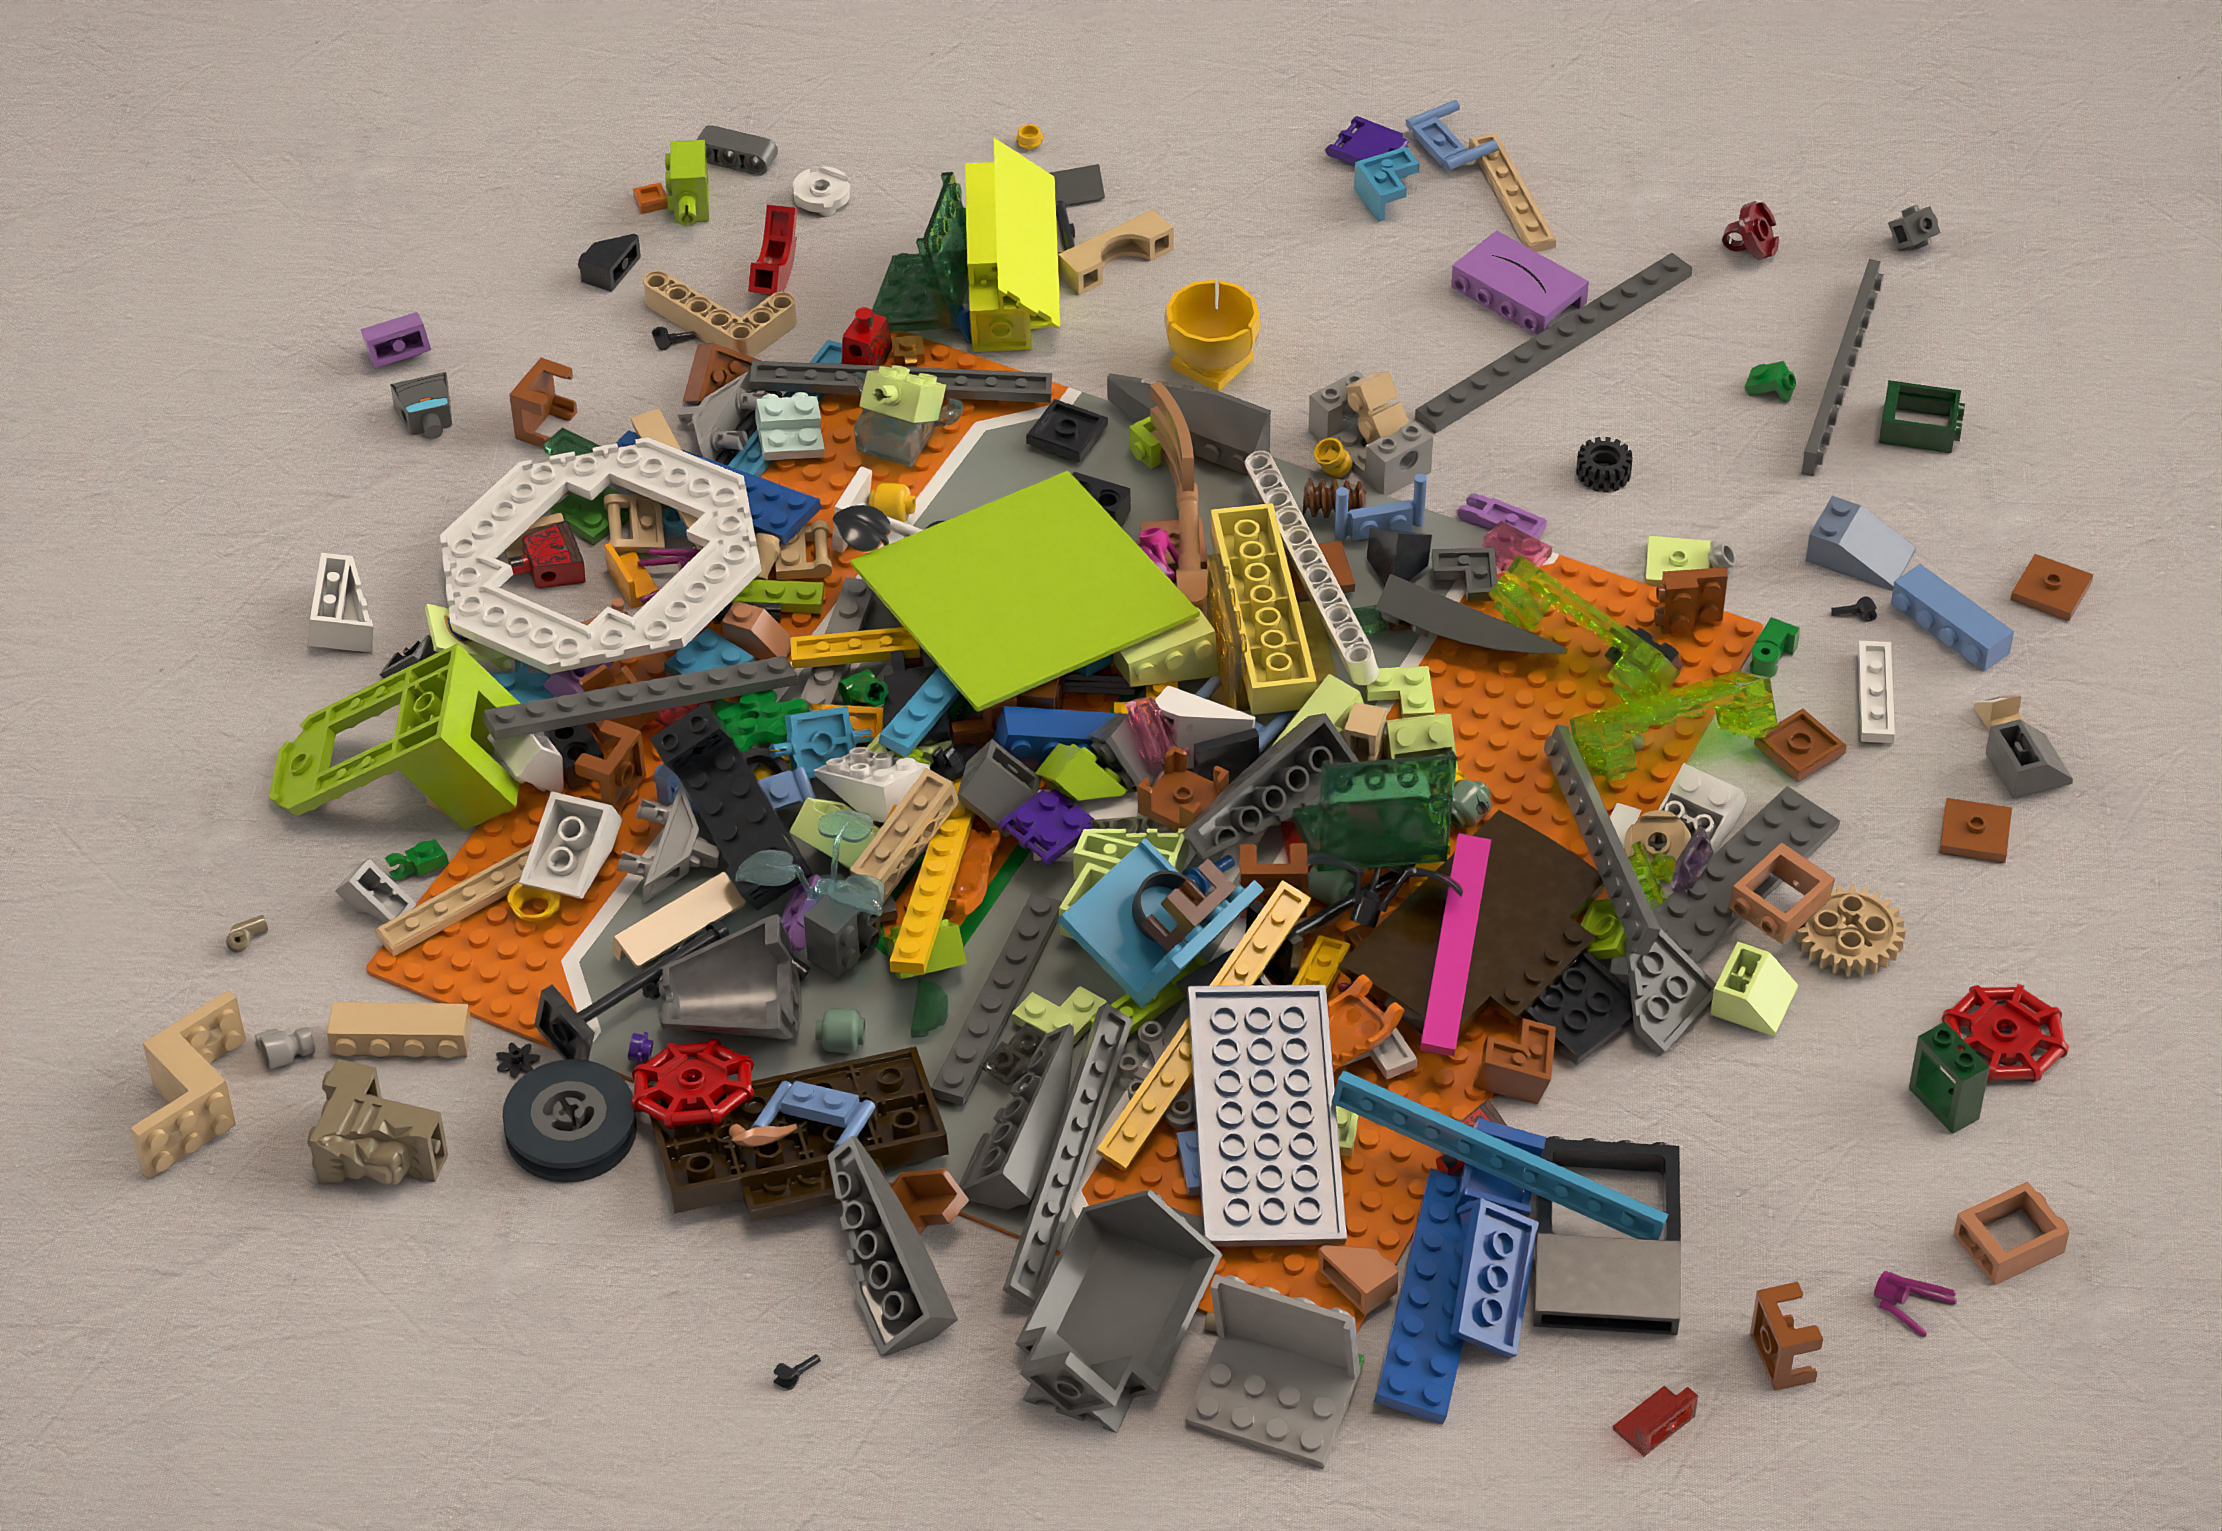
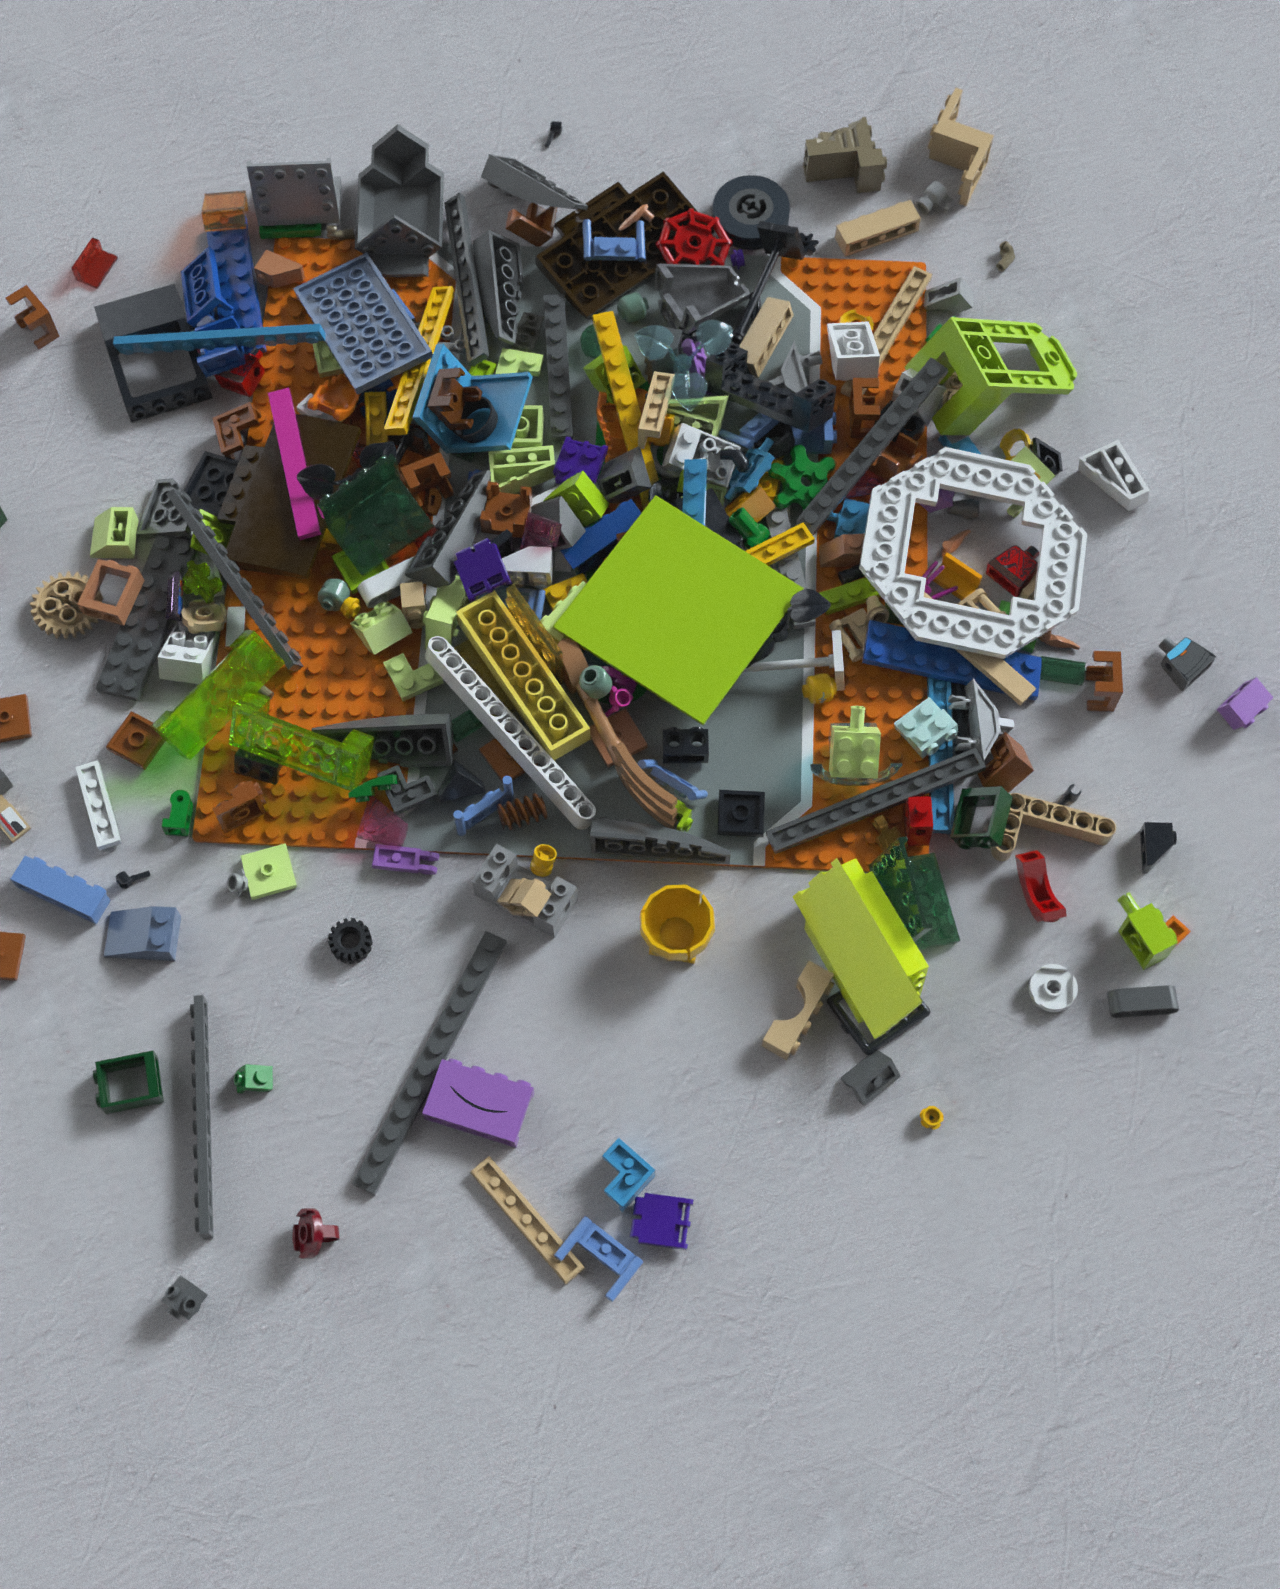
camera: 155 degrees right, 20 degrees up
(769, 340) = (981, 797): none -> dark green window
(833, 740) = (737, 458): none -> black arm
(1128, 469) = (666, 777): none -> medium blue plate
(1177, 545) = (595, 682): none -> sand green head
(1258, 705) = (481, 569): none -> dark purple plate
(1404, 1401) = (224, 210): none -> clear orange panel
(1496, 561) = (367, 789): none -> green slope

